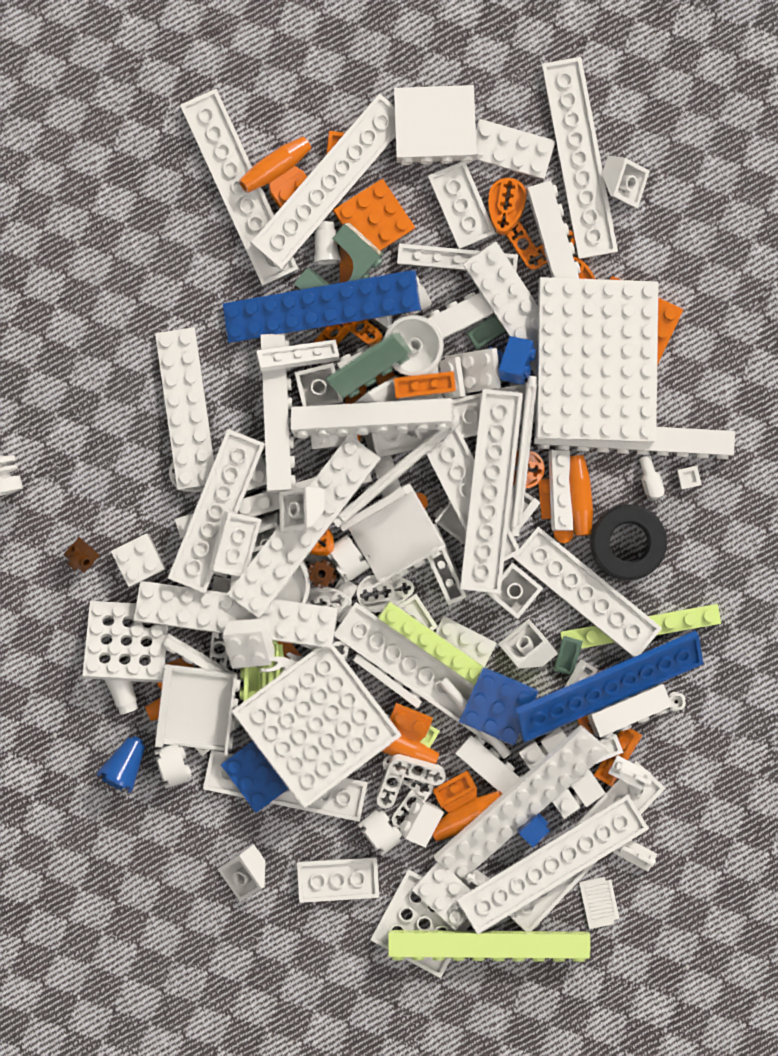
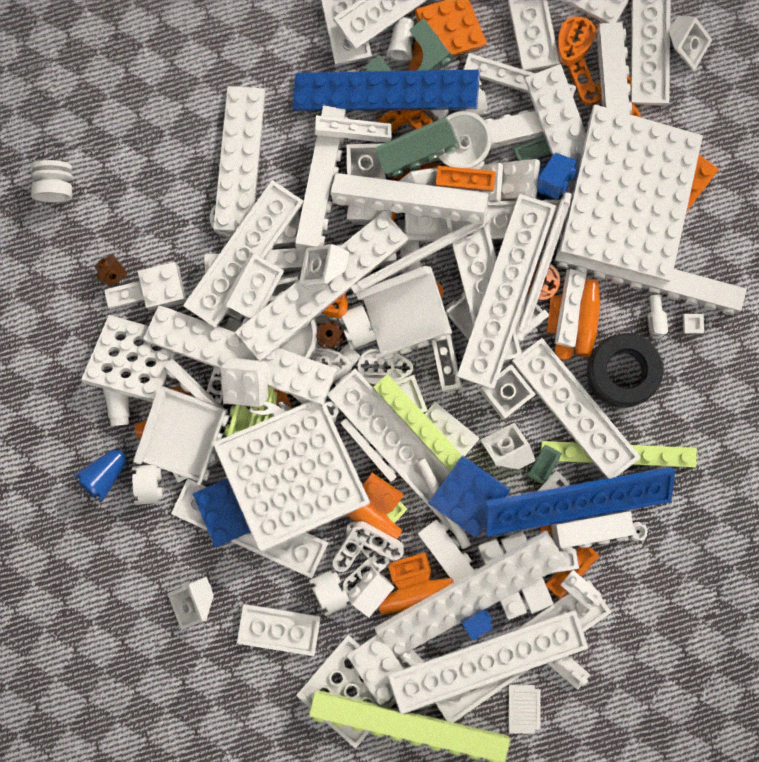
camera: 15 degrees right, 5 degrees down
(101, 576) = (124, 295): none -> white plate

